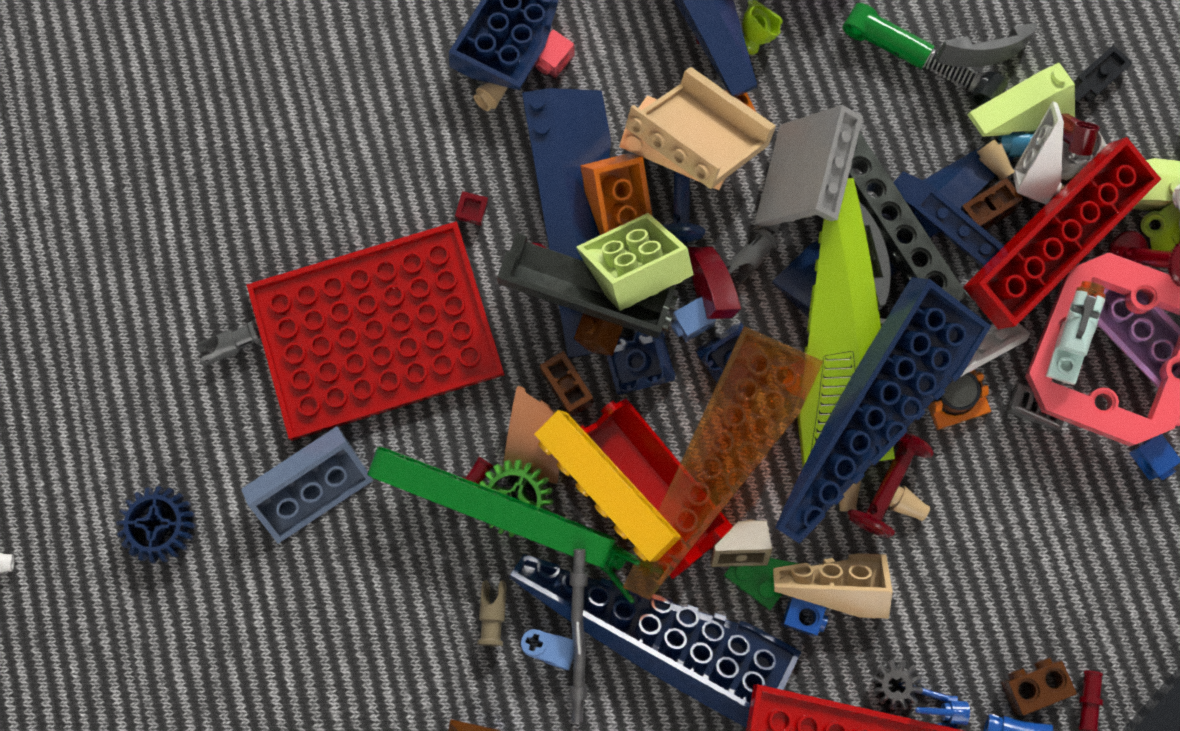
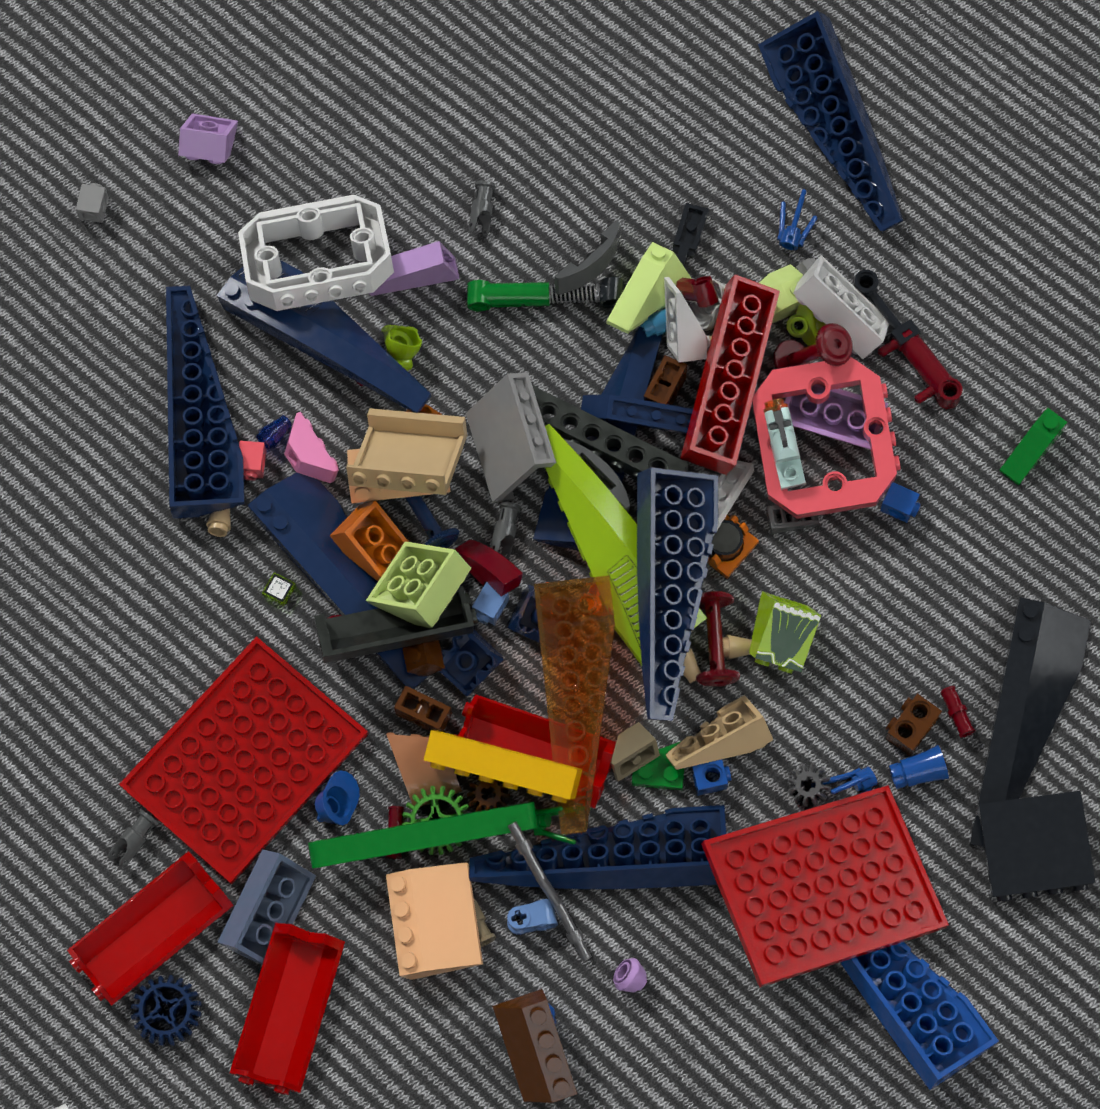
camera: 30 degrees left, 5 degrees down
(188, 437) = (149, 928): none -> red panel
(264, 593) = (287, 1008): none -> red panel
(436, 421) = (338, 799): none -> blue piece
(452, 594) = (434, 920): none -> light nougat slope
(471, 208) = (261, 619): dark red plate -> none
(505, 189) = (279, 589): none -> tile
(575, 513) = (478, 799): none -> reddish brown gear
(590, 40) = (274, 432): none -> clear blue cone
(610, 77) = (308, 452): none -> bright pink slope
(962, 518) = (783, 632): none -> slope
(995, 159) = (648, 344): tan cone -> none

